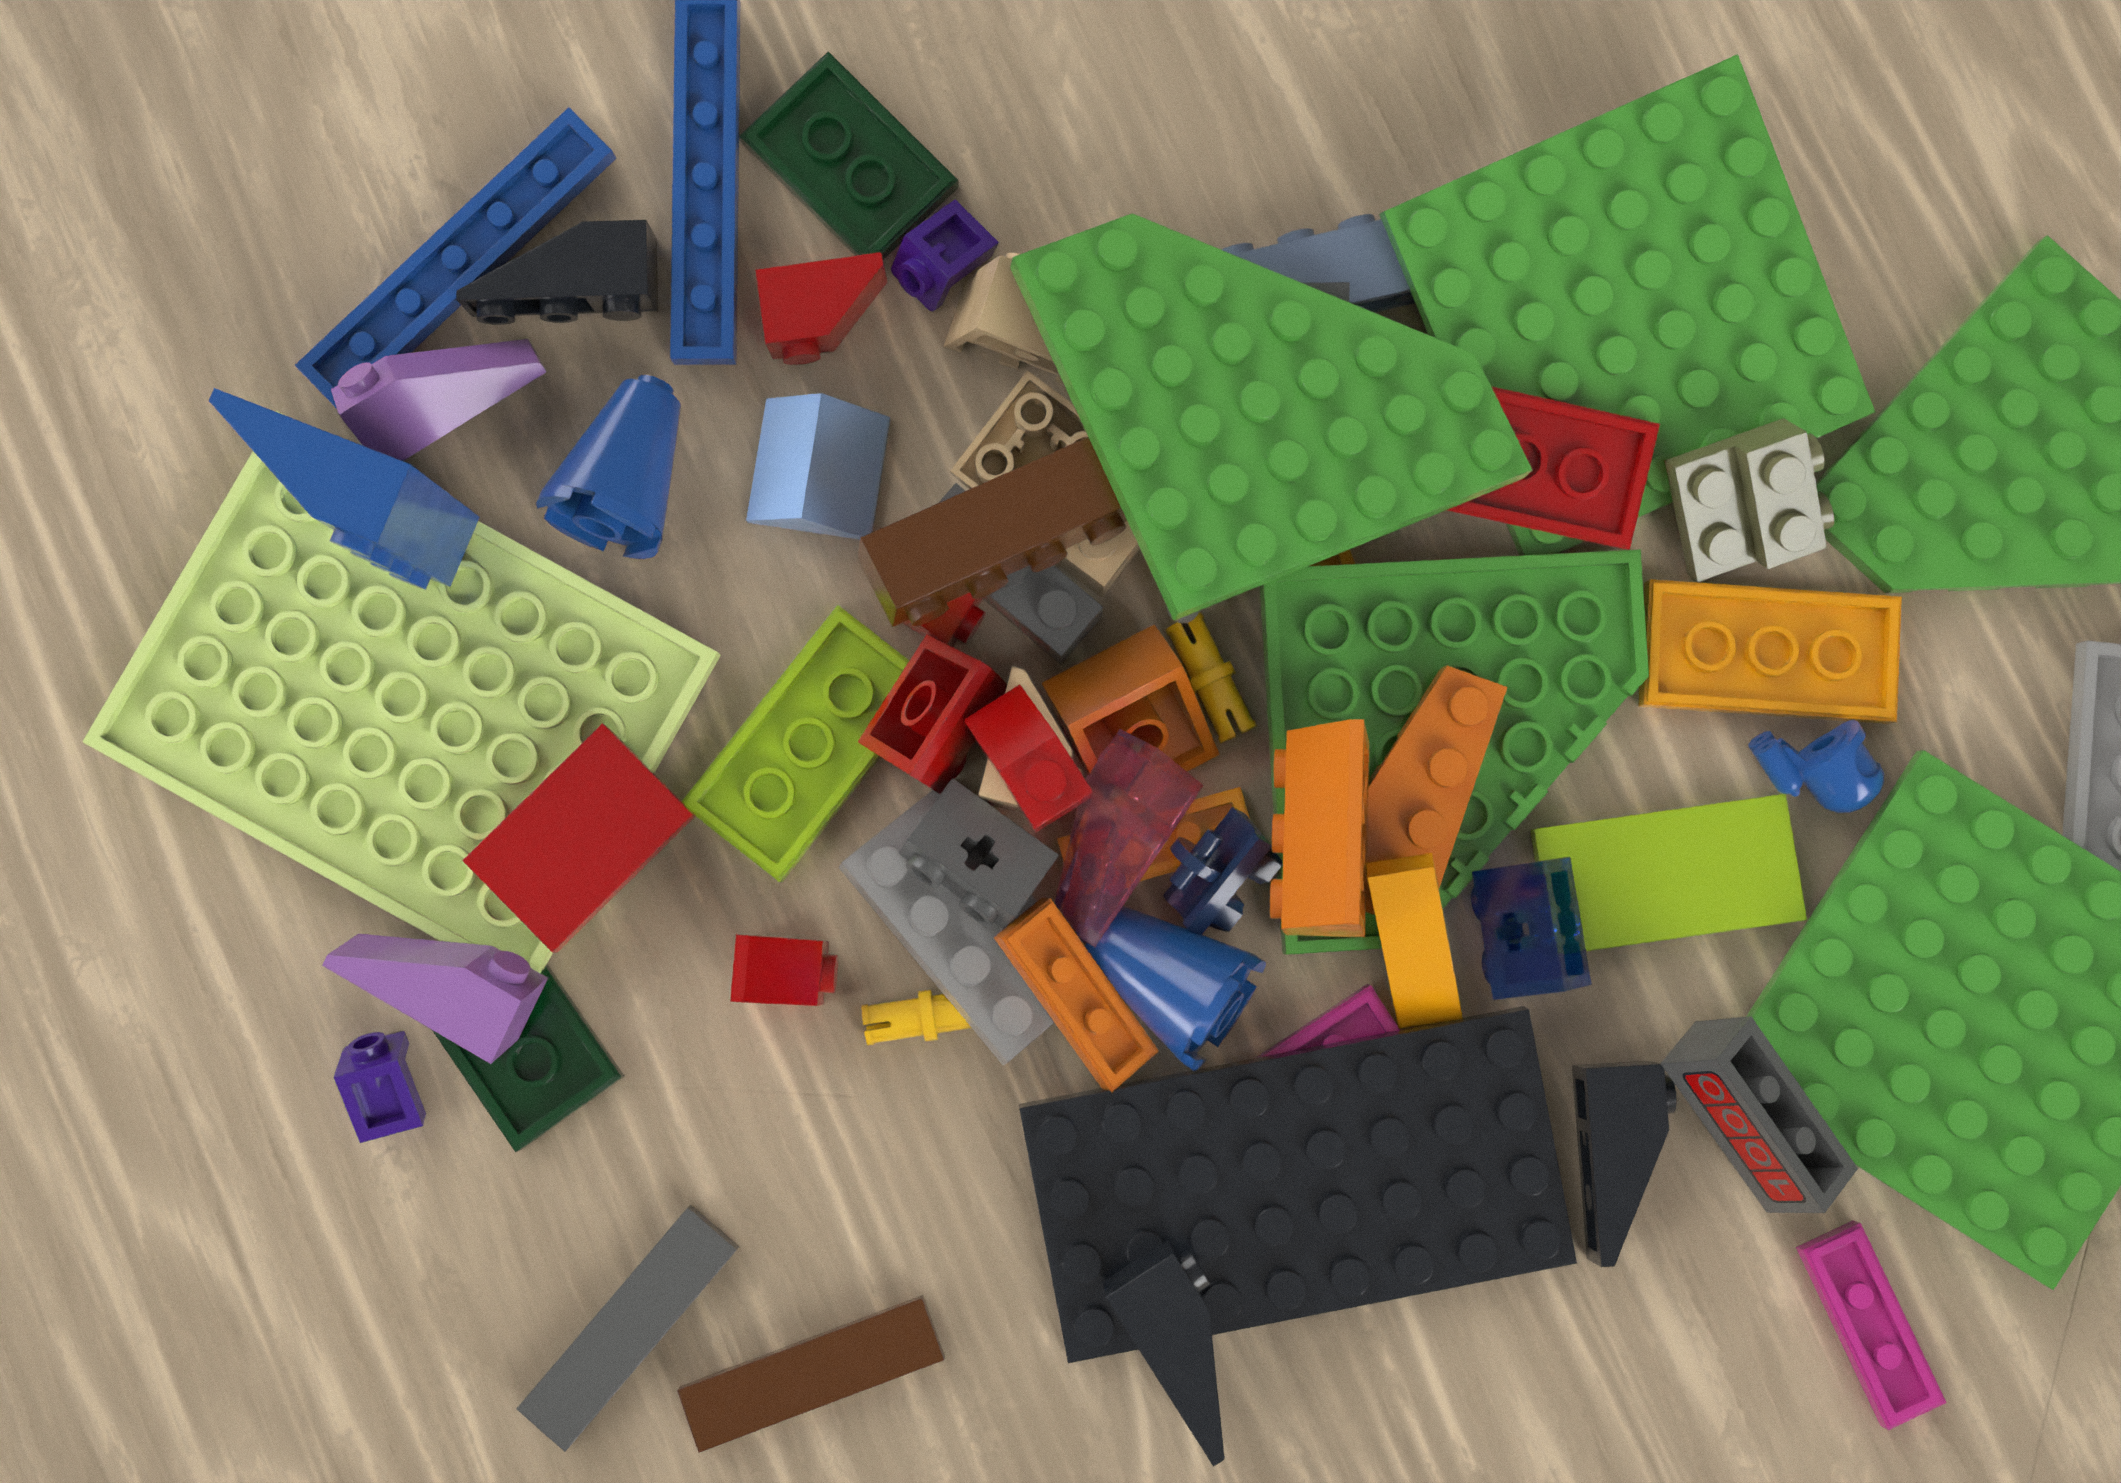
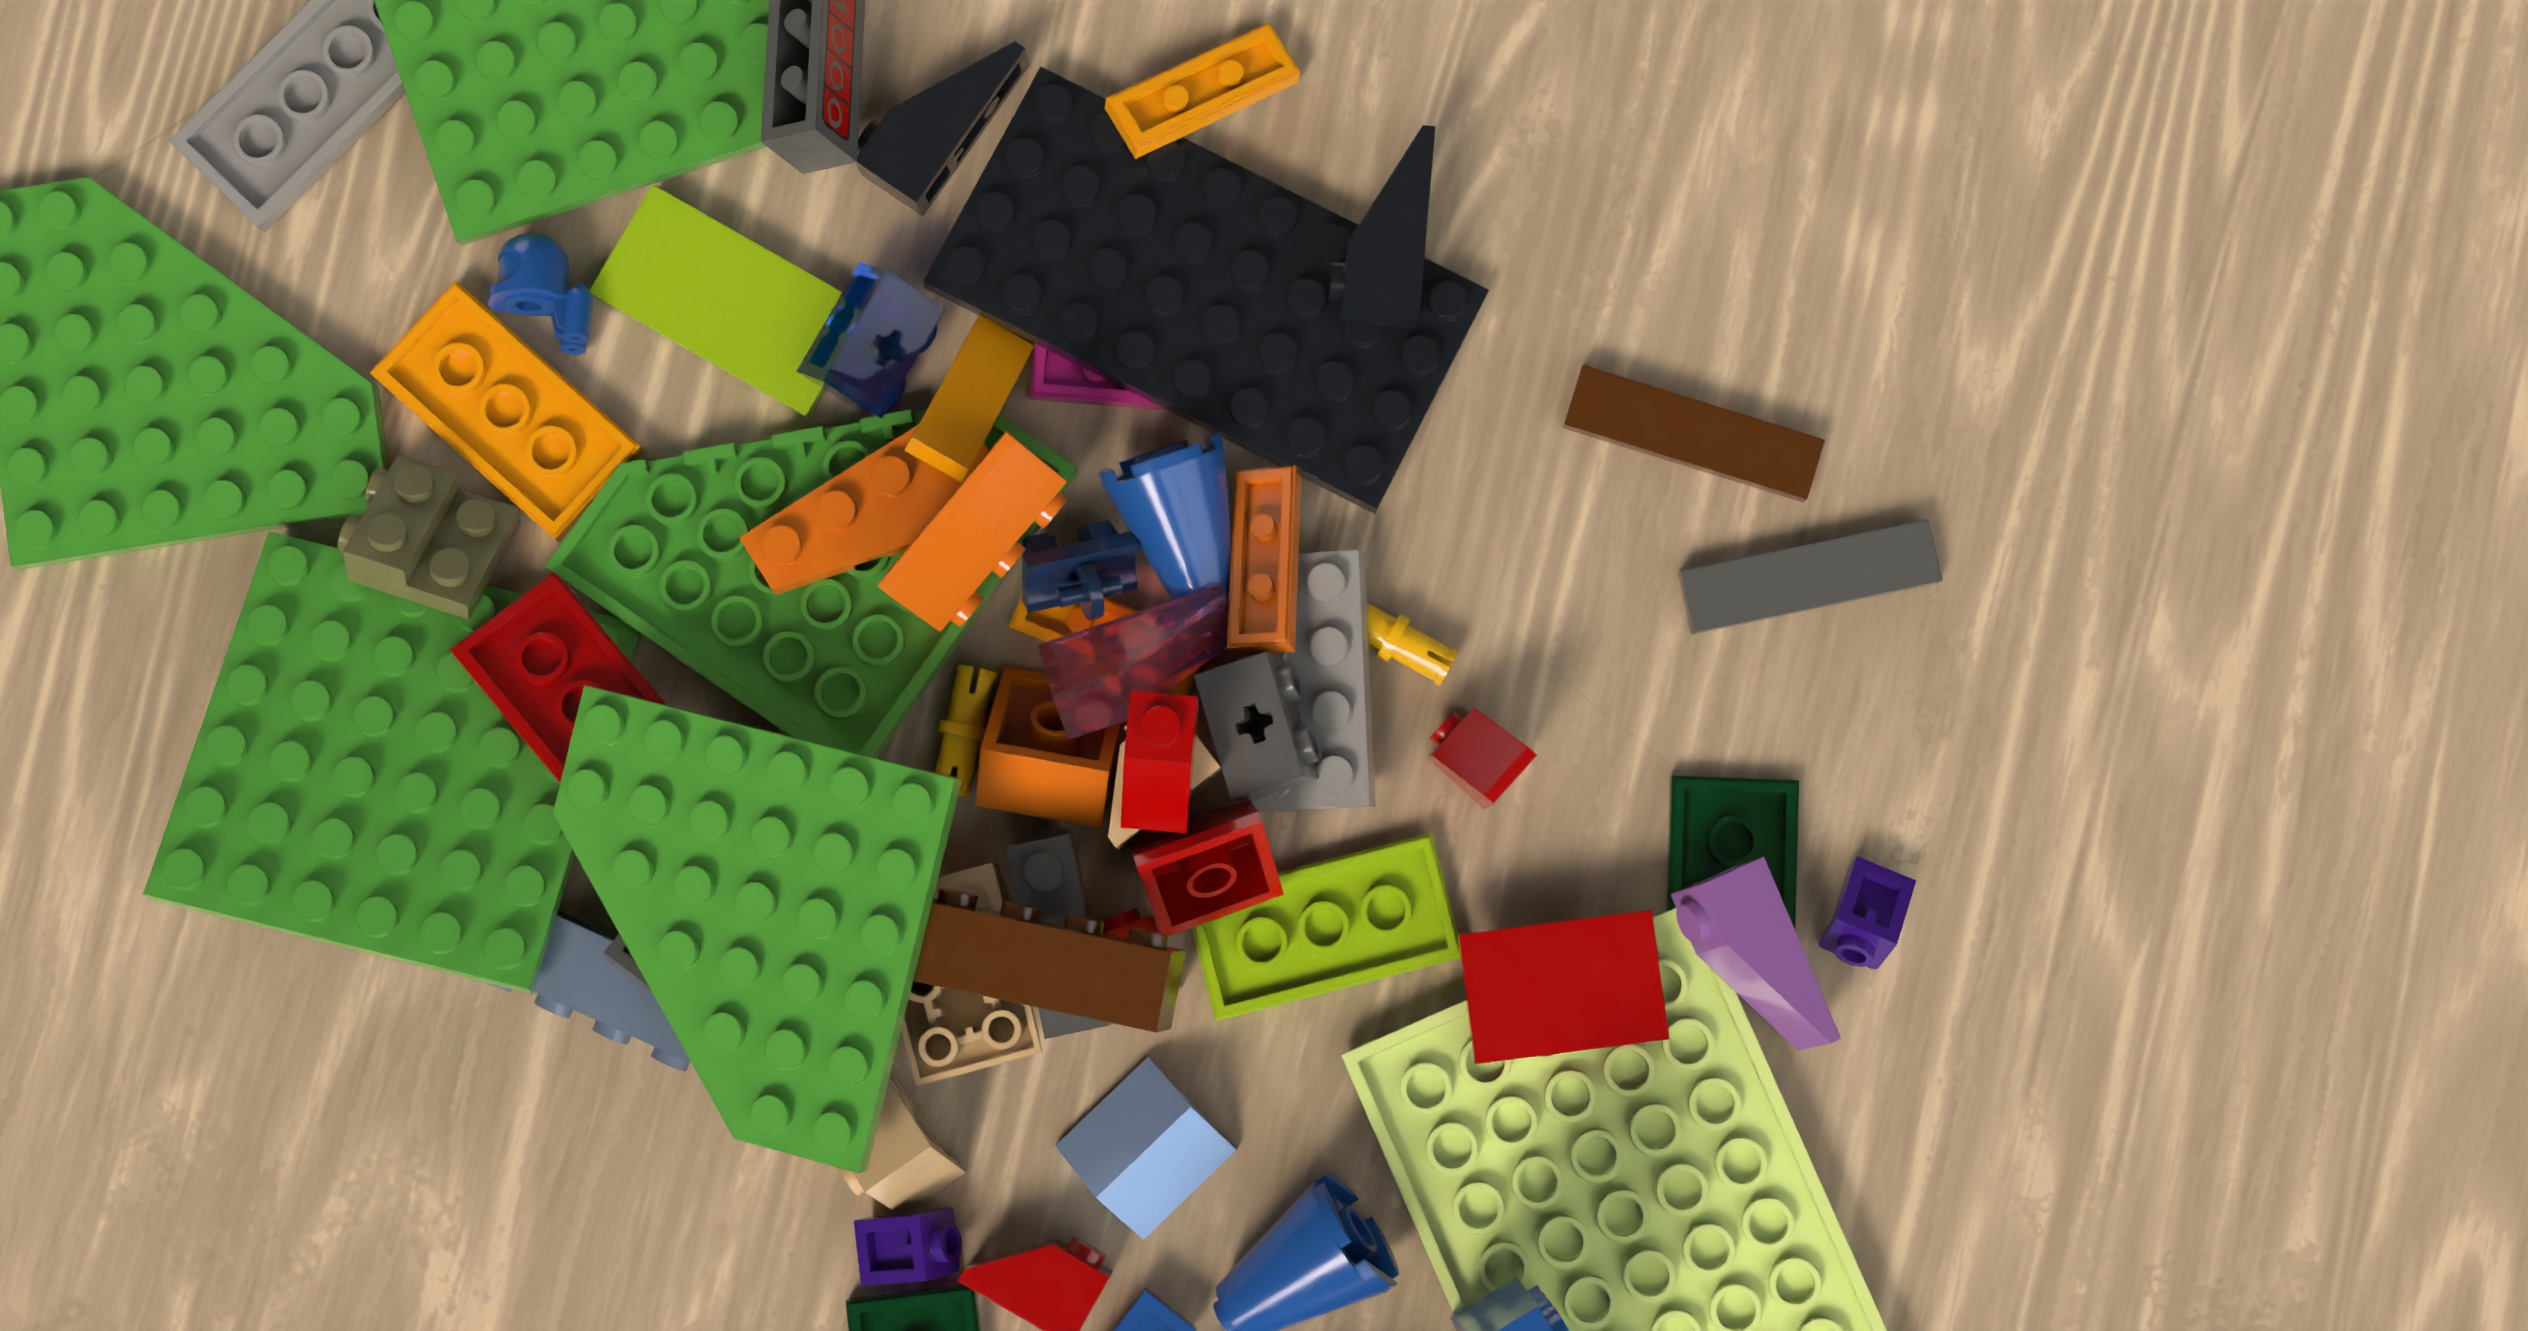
camera: 140 degrees left, 0 degrees up
(1430, 1347) = (1202, 90): none -> light orange tile

